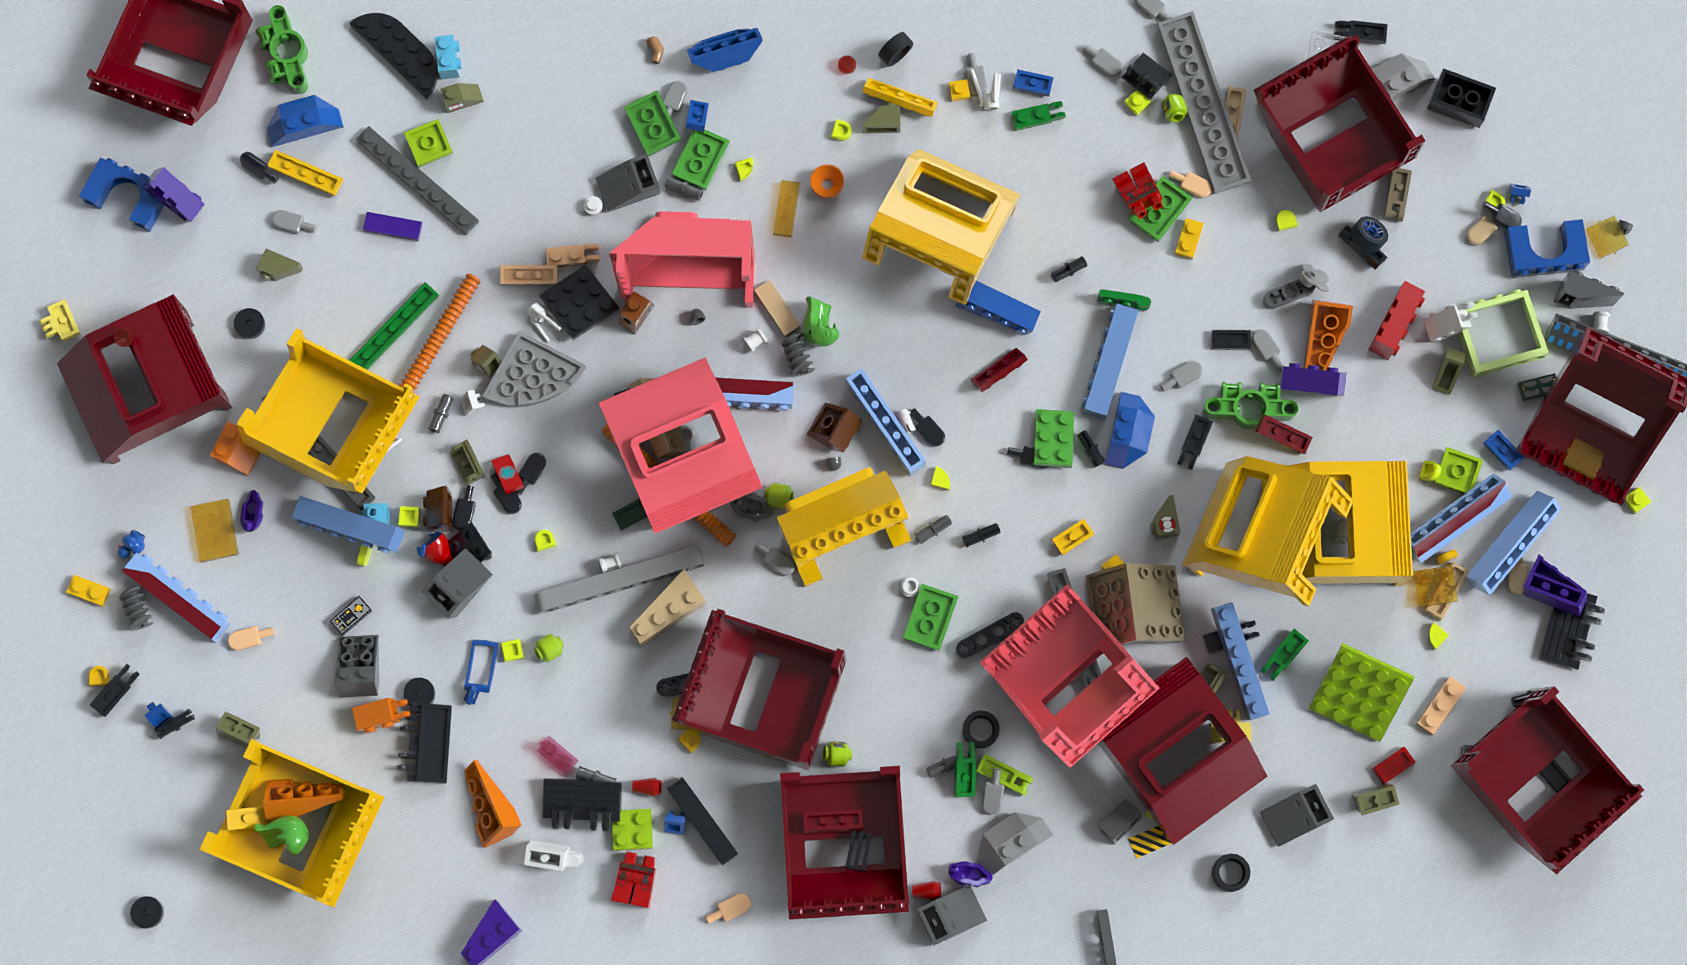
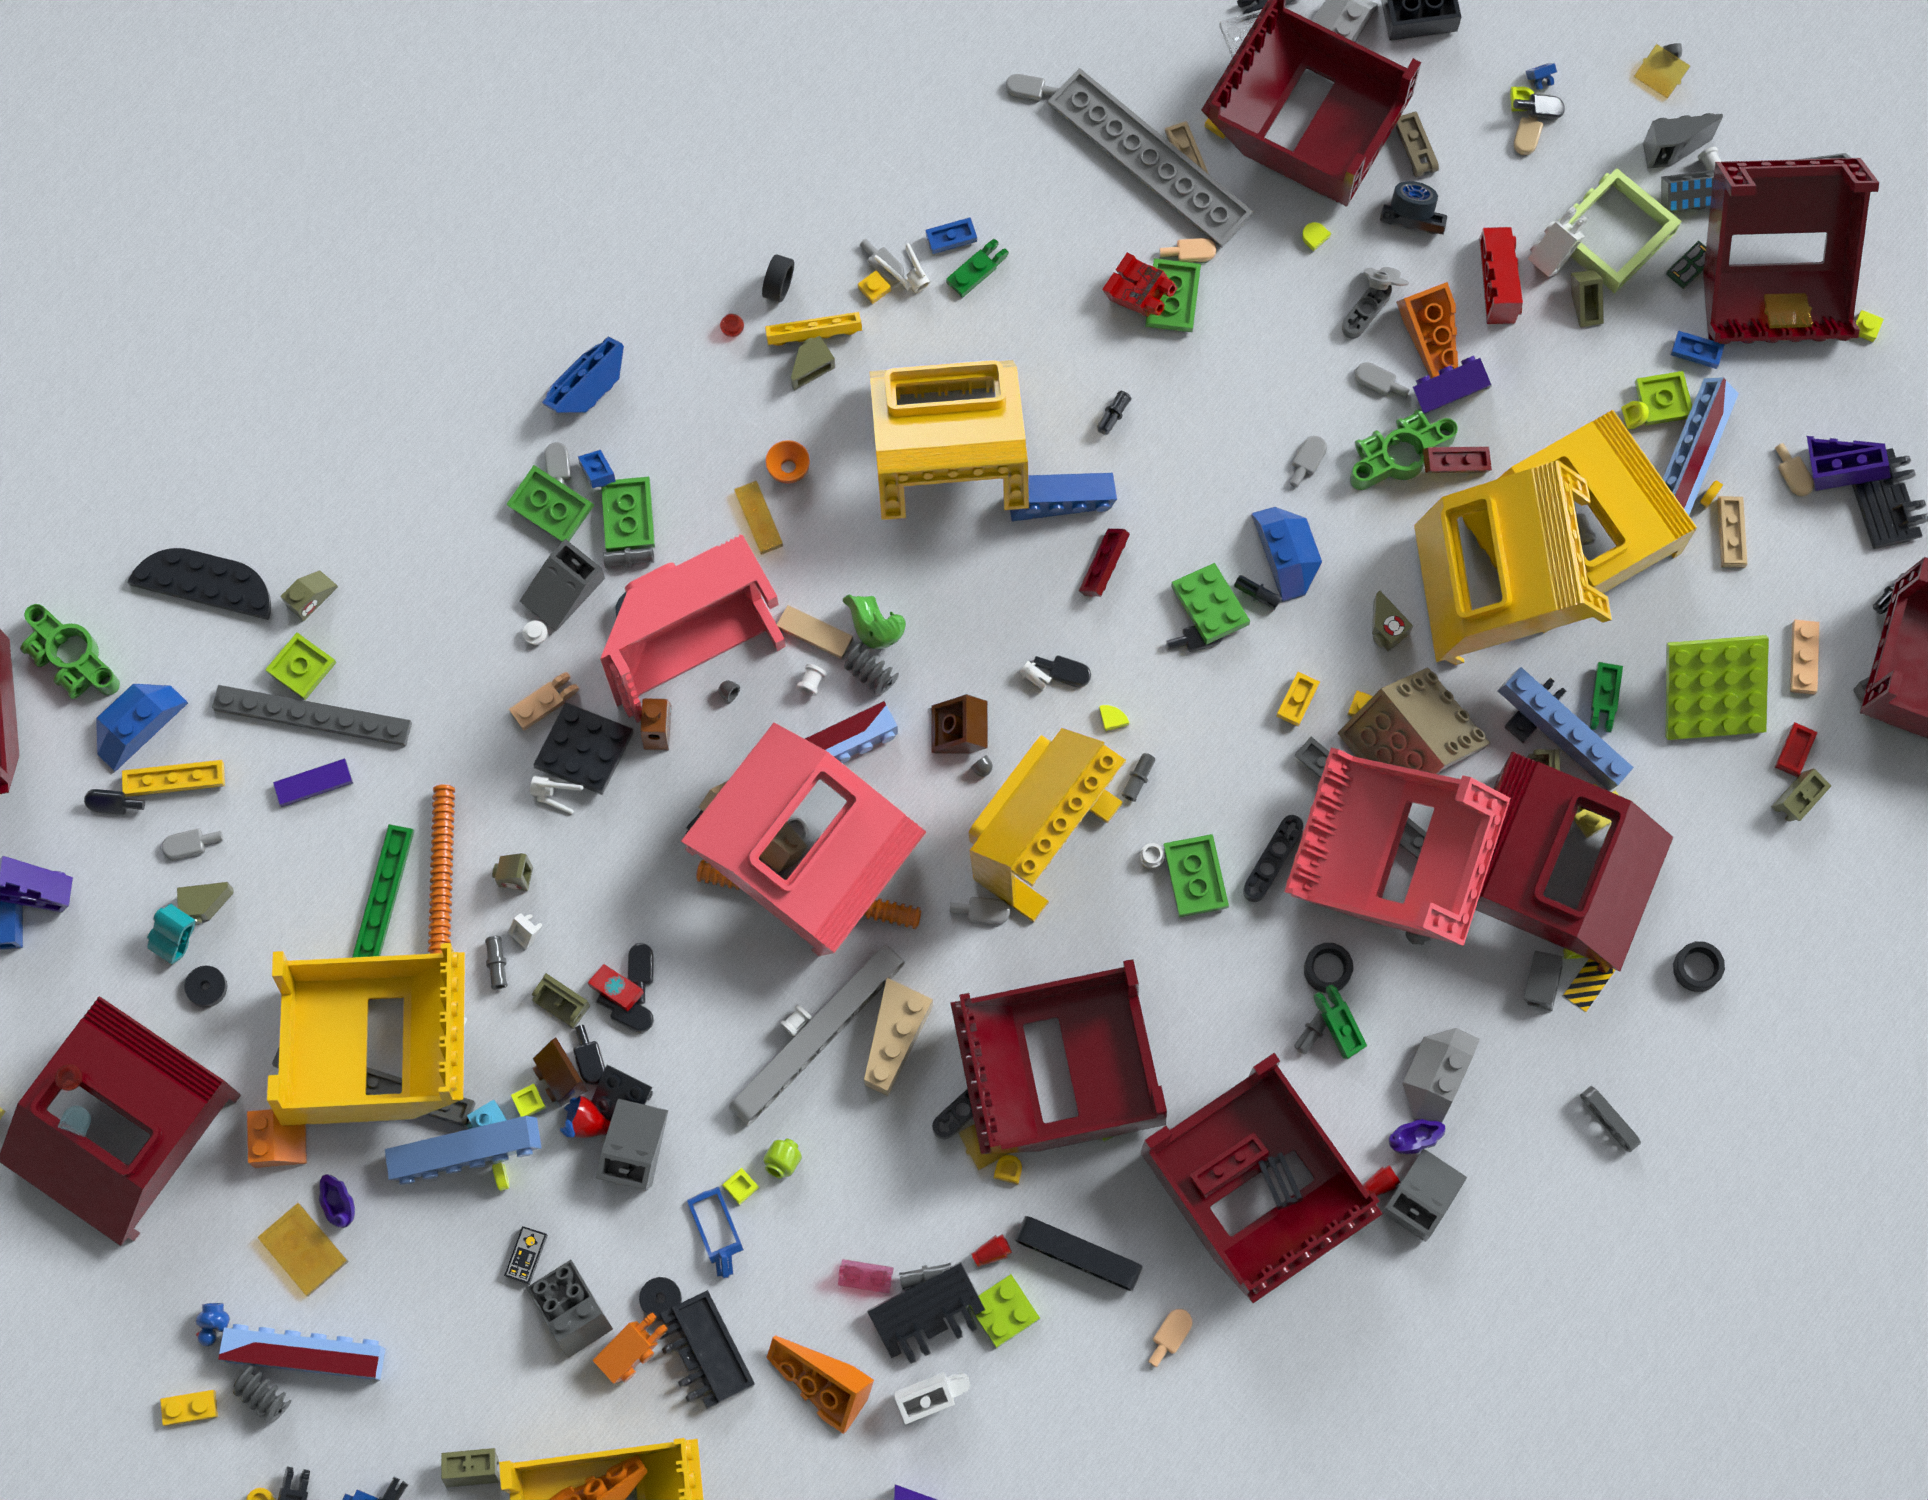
camera: 30 degrees left, 5 degrees down
(113, 368) = (75, 1120): none -> clear light blue tile
(245, 276) = (170, 933): none -> teal brick
(248, 637) = (416, 1352): light nougat piece -> none
(447, 57) = (266, 558): medium azure brick -> none
(528, 274) = (506, 749): light nougat plate -> none
(532, 374) = (576, 859): light grey plate -> none
(544, 540) = (703, 1039): neon yellow tile -> none
(629, 514) = (785, 953): dark green tile -> none
(635, 875) = (1043, 1359): red hips -> none
(657, 47) = (500, 417): medium nougat arm -> none
(674, 823) = (1049, 1275): blue tile -> none
(744, 168) = (683, 499): neon yellow tile -> none
(751, 507) = (921, 866): dark grey arm -> none
(778, 495) = (943, 836): lime head -> none
(836, 754) = (1185, 1088): lime head -> none
(841, 130) = (769, 400): neon yellow tile -> none
(885, 422) = (1014, 688): light blue brick -> none
(981, 535) = (1195, 753): black axle -> none
(993, 794) = (1386, 1031): light grey piece -> none
(1007, 776) = (1384, 1003): lime plate -> none
(1104, 61) = (1014, 172): light grey piece -> none
(1110, 297) = (1194, 412): green hinge -> none
(1110, 361) = (1221, 486): medium blue brick -> none
(1137, 102) = (1077, 196): neon yellow plate -> none
(1146, 76) = (1070, 163): black hinge -> none
(1174, 108) = (1121, 180): lime head -> none
(1189, 238) = (1223, 310): yellow plate -> none
(1195, 439) = (1365, 520): black hinge -> none
(1231, 339) = (1335, 392): black tile -> none
(1297, 815) = (1730, 861): dark grey slope -> none
(1435, 586) = (1720, 532): clear yellow hinge -> none
(1436, 635) = (1752, 584): neon yellow tile -> none
(1513, 542) = (1771, 440): light blue brick -> none
(1525, 261) = (1594, 141): blue arch -> none

